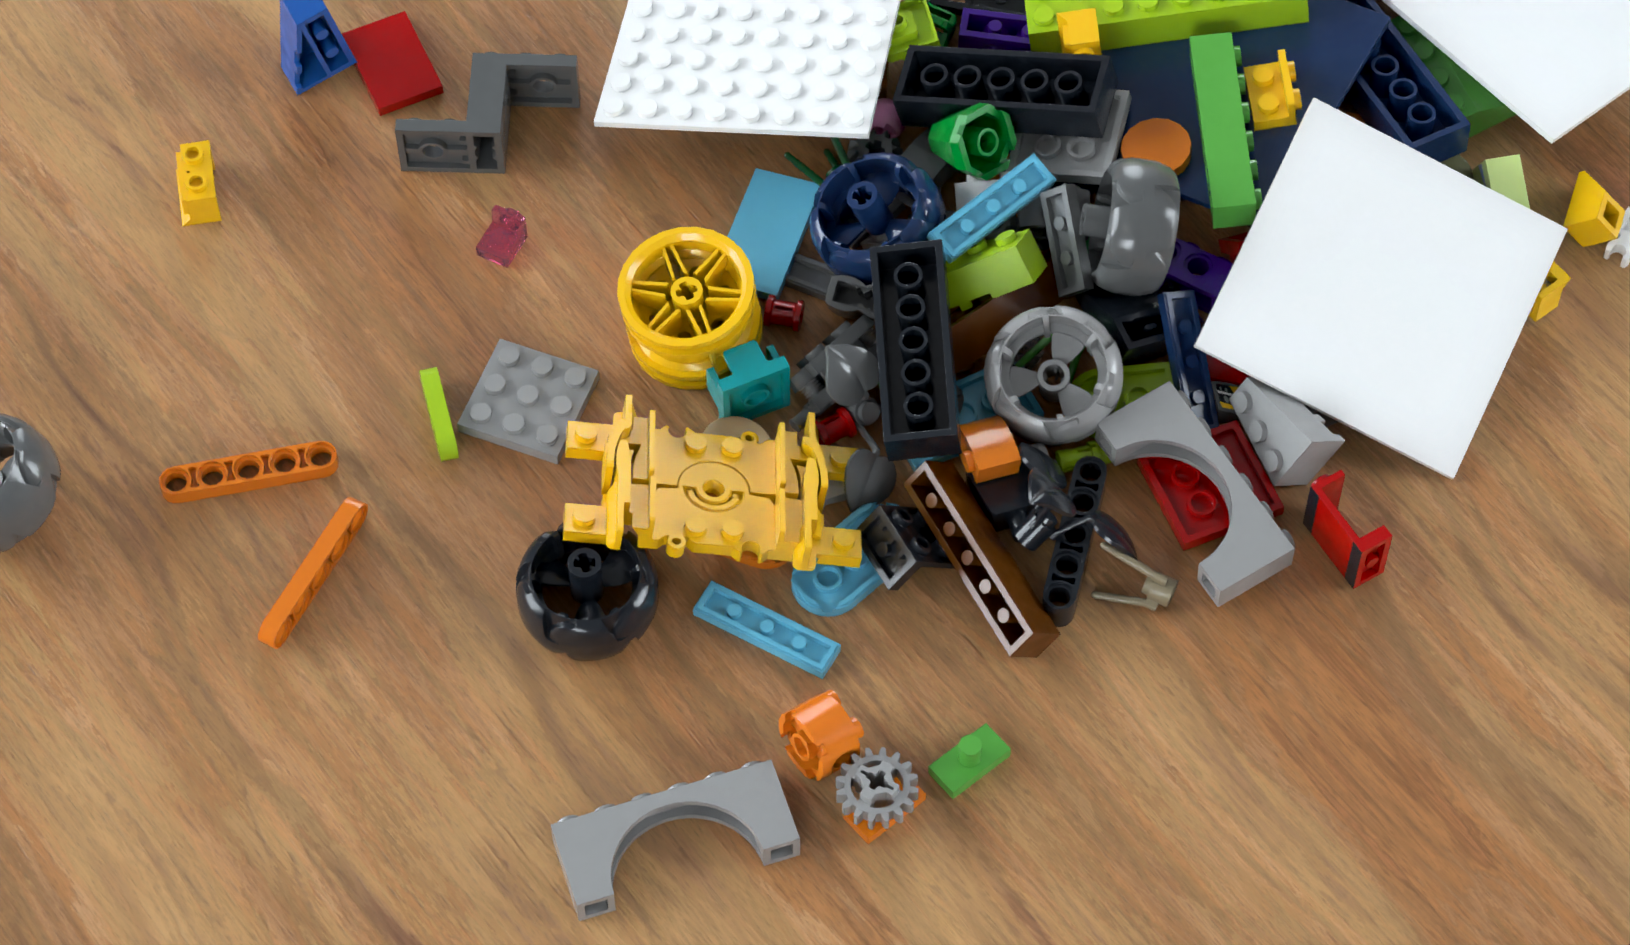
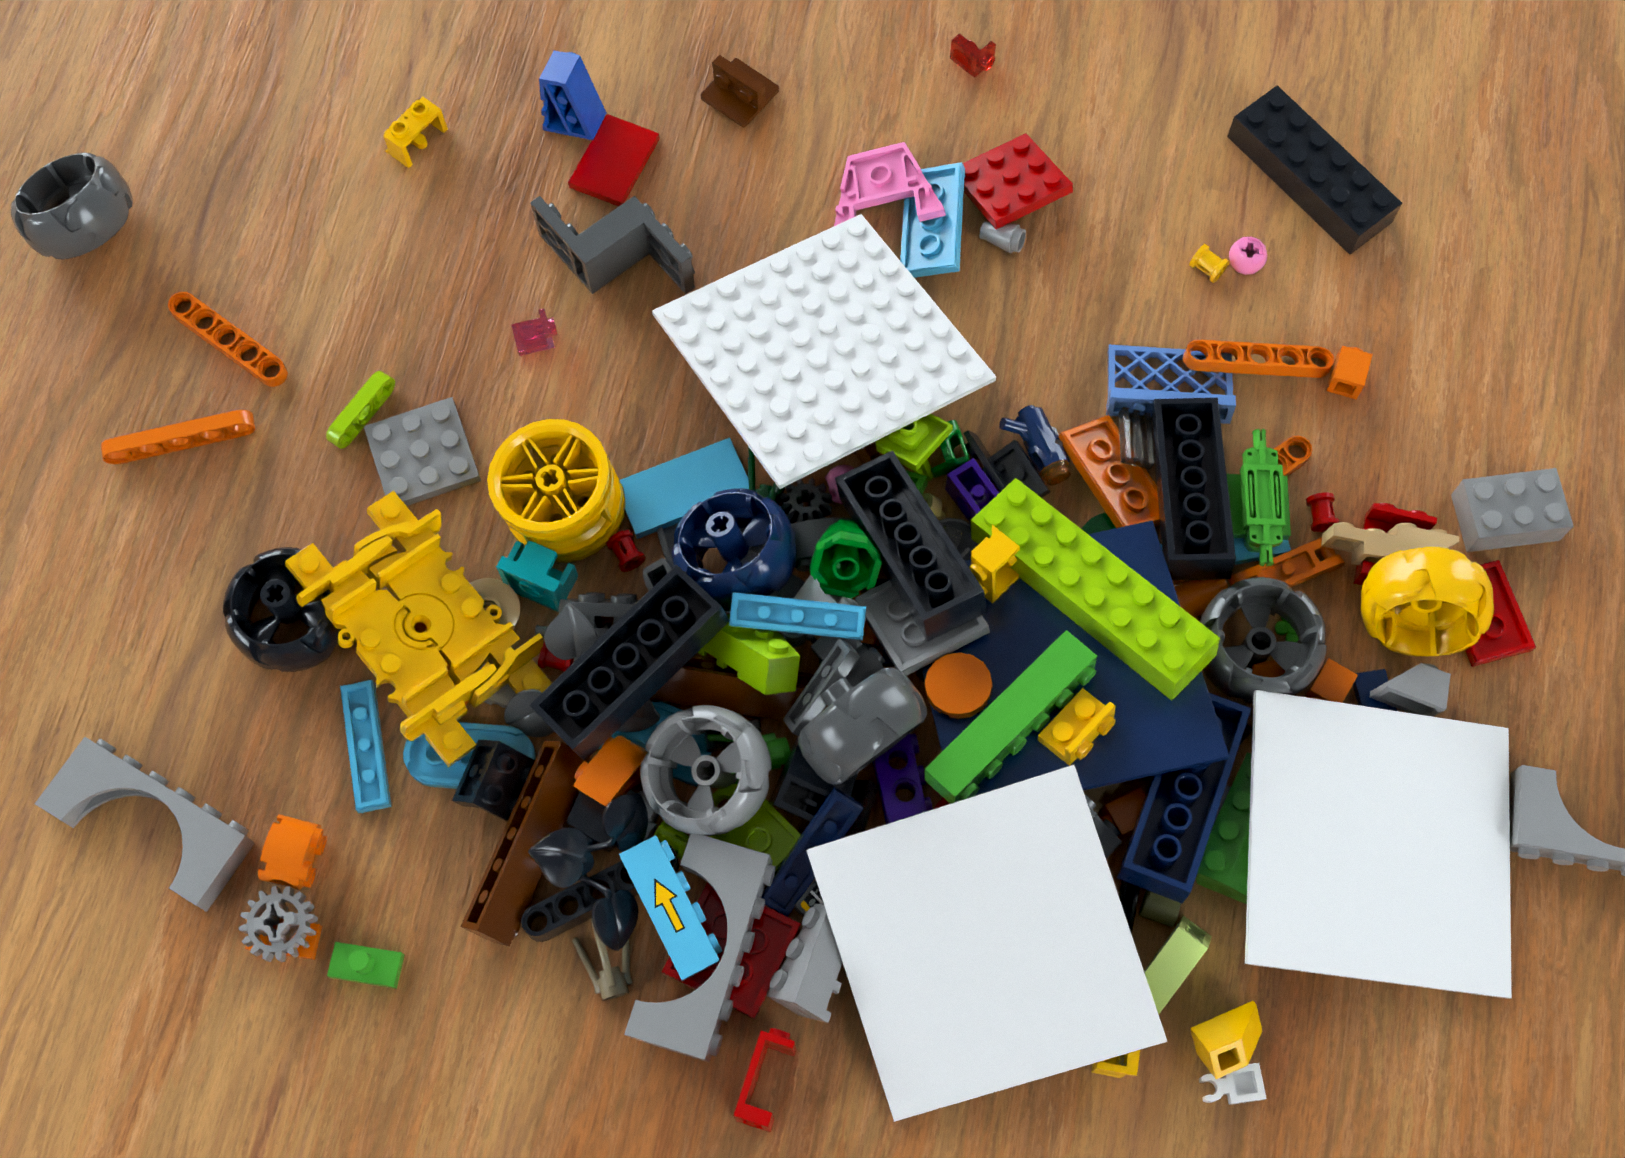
camera: 50 degrees right, 10 degrees up
(1143, 487) = (669, 907): none -> medium azure brick

